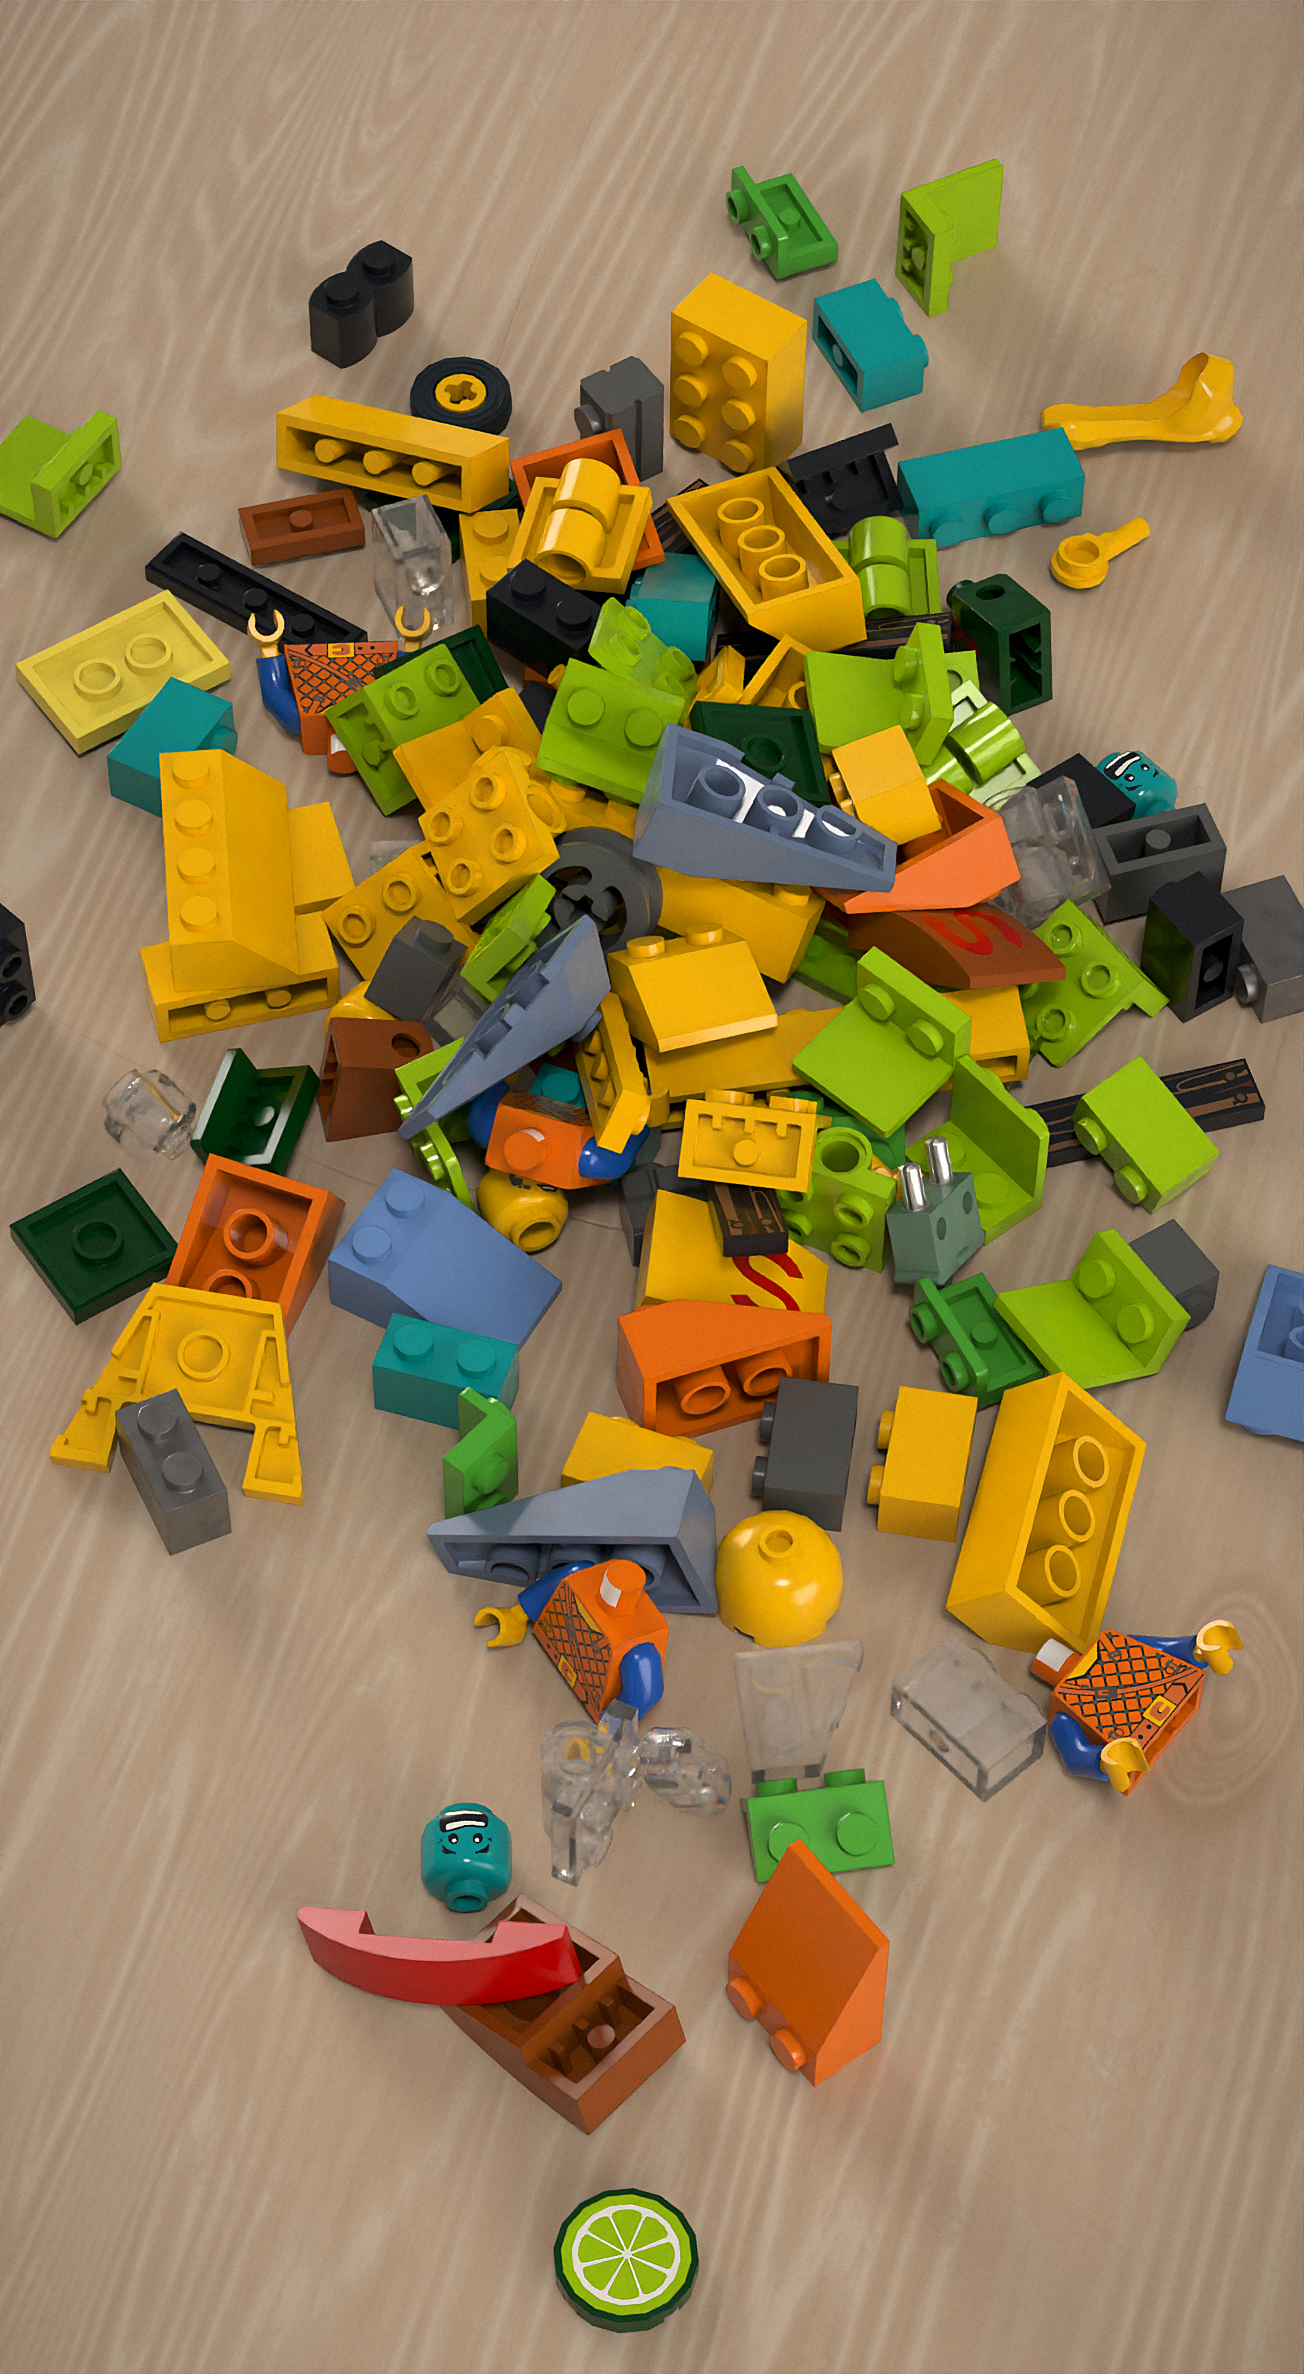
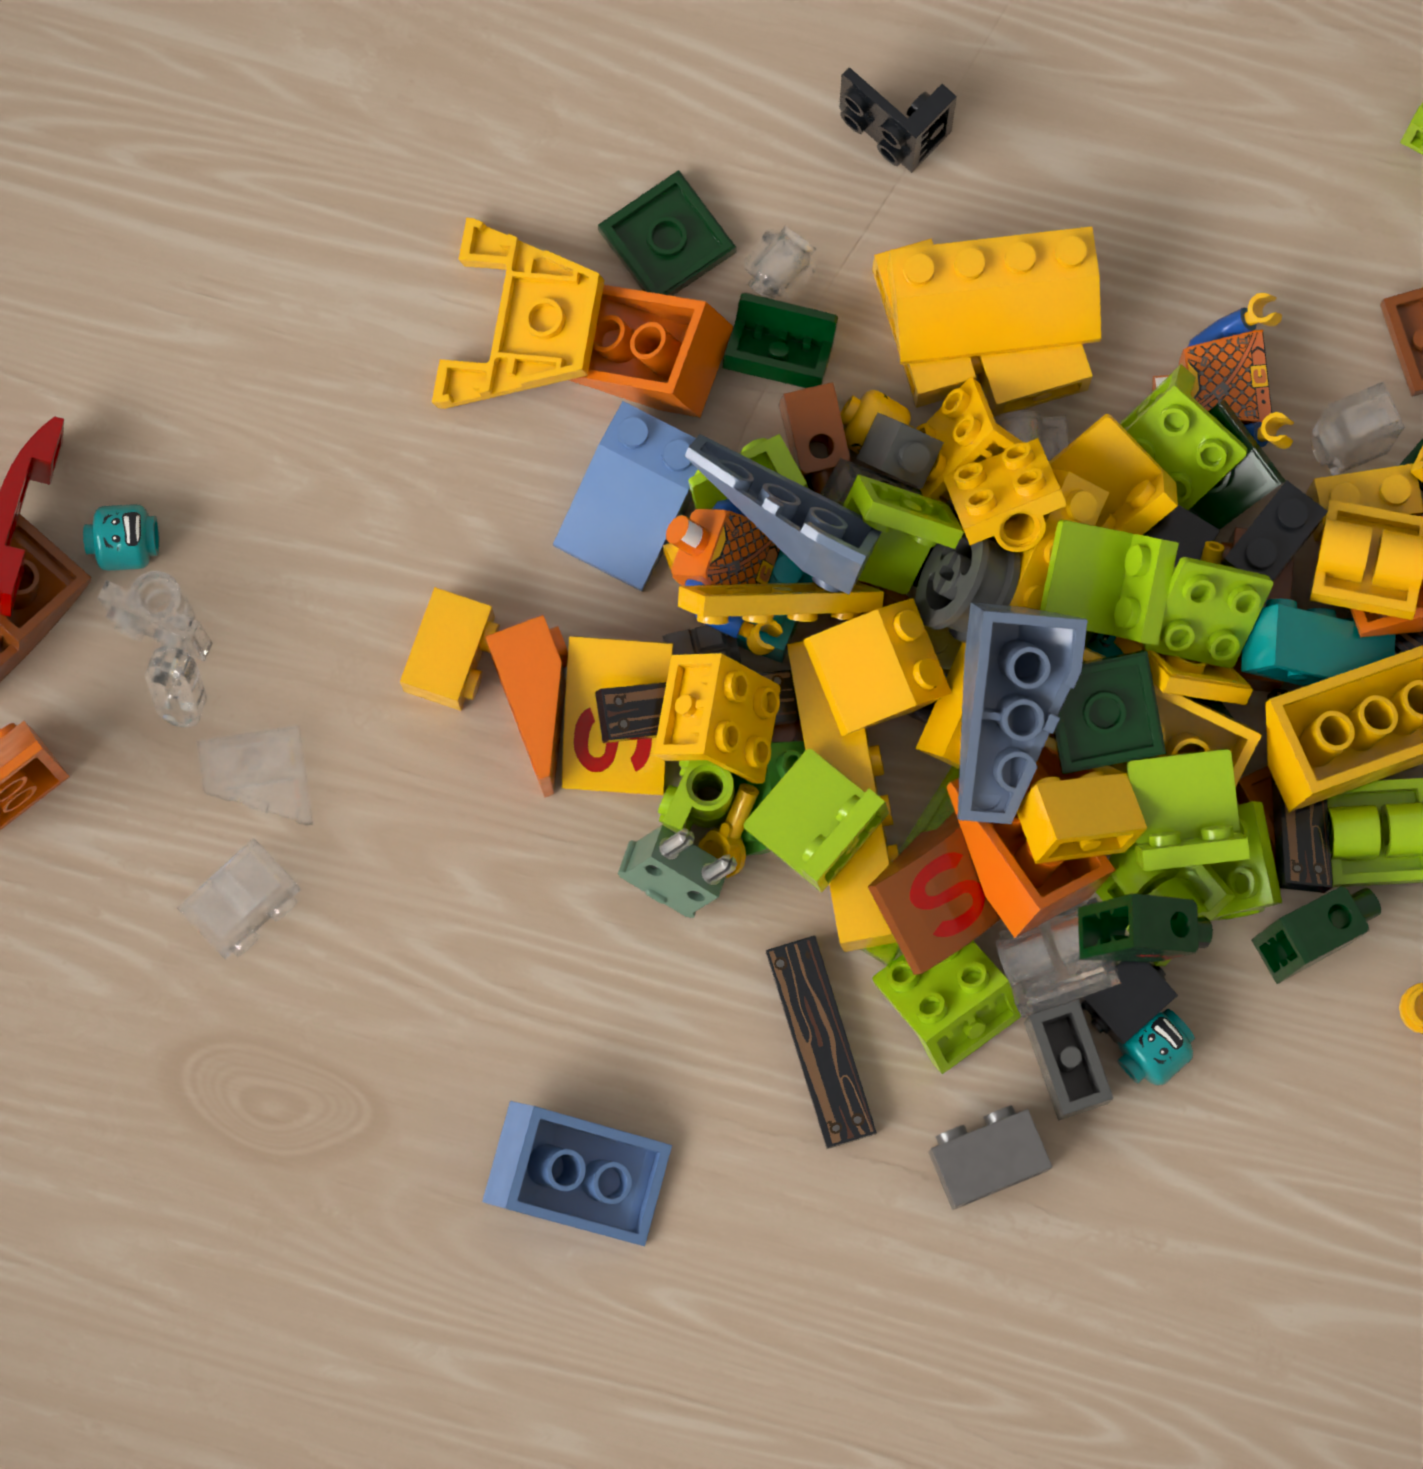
camera: 90 degrees right, 25 degrees up
(112, 671) = (1247, 207): light yellow plate -> none
(173, 1472) = (445, 305): flat silver brick -> none
(174, 721) = (1159, 253): teal brick -> none
(235, 592) = (1335, 311): black tile -> none
(428, 1365) = (536, 501): teal brick -> none
(484, 1464) = (432, 531): bright green bracket -> none
(595, 1630) = (291, 624): torso -> none
(633, 1515) = (373, 637): sand blue wedge -> none
(778, 1578) = (366, 758): yellow cylinder -> none
(808, 1450) = (473, 777): dark grey brick -> none
(840, 1822) = (152, 788): bright green bracket -> none
(925, 1463) = (466, 866): yellow brick -> none
(972, 1339) = (583, 906): bright green bracket -> none
(997, 1143) = (754, 908): lime bracket -> none
(1021, 724) = (1158, 929): none -> dark green torso
(1046, 1519) = (414, 961): yellow slope -> none
(1101, 1322) = (593, 993): lime bracket -> none
(1128, 1697) = (248, 1013): torso -> none
(1143, 1136) = (776, 1041): lime brick -> none
(1180, 1268) = (645, 1062): dark grey brick -> none
(1191, 945) = (971, 1083): black brick -> none

